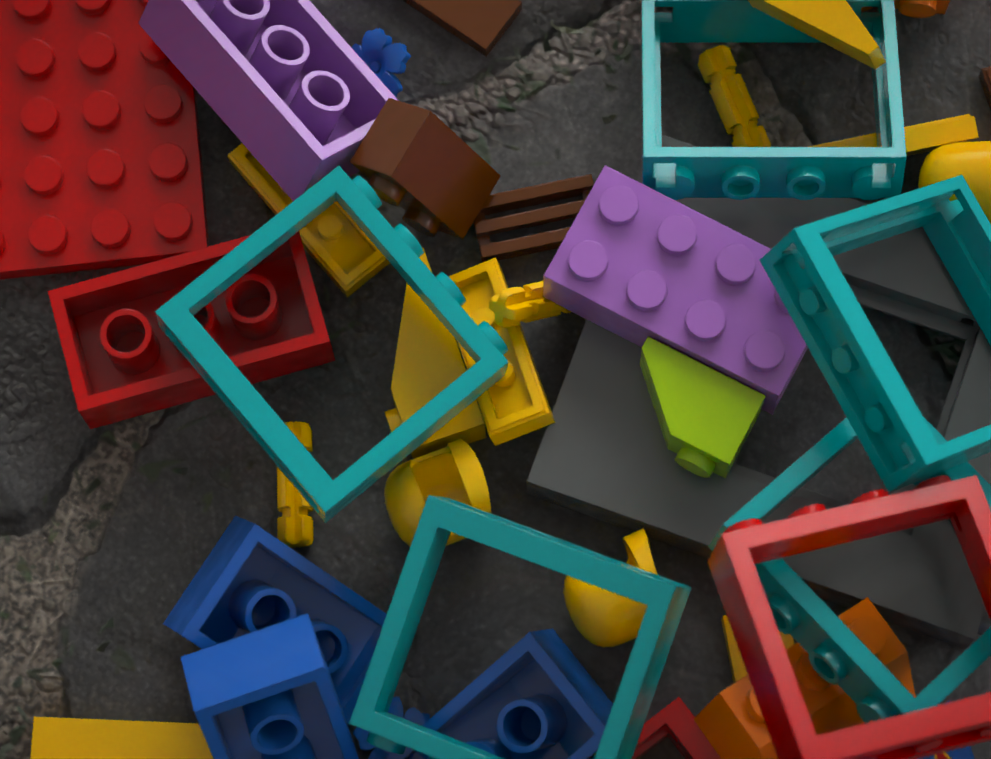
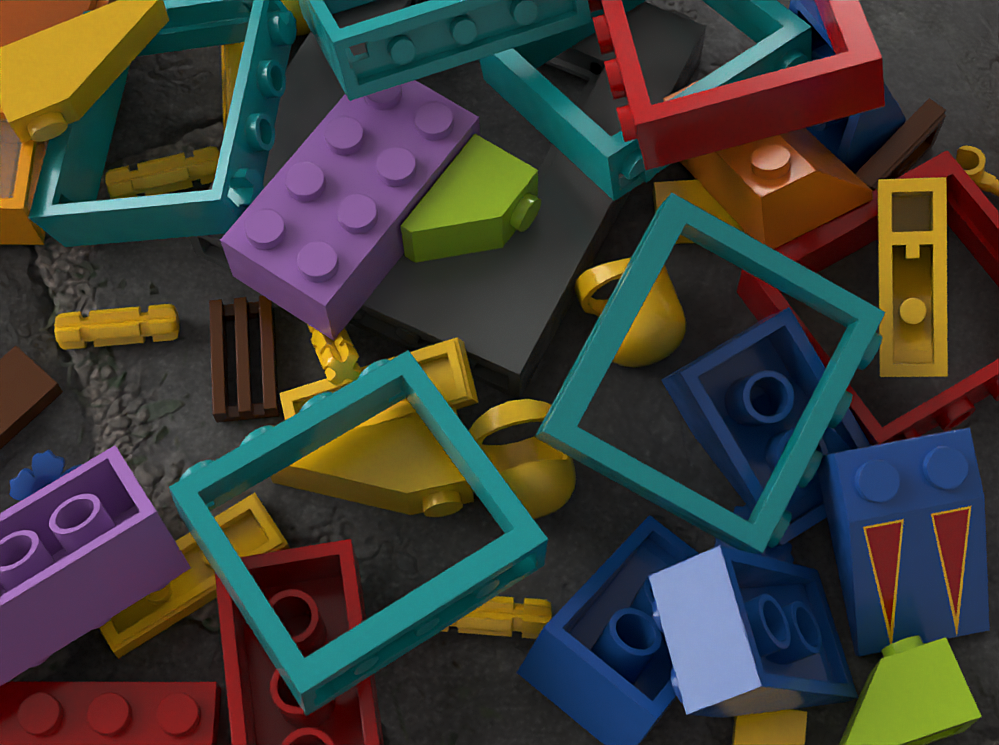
camera: 85 degrees left, 10 degrees down
(424, 169) = (172, 429): reddish brown brick -> none
(556, 92) = (117, 326): none -> yellow axle

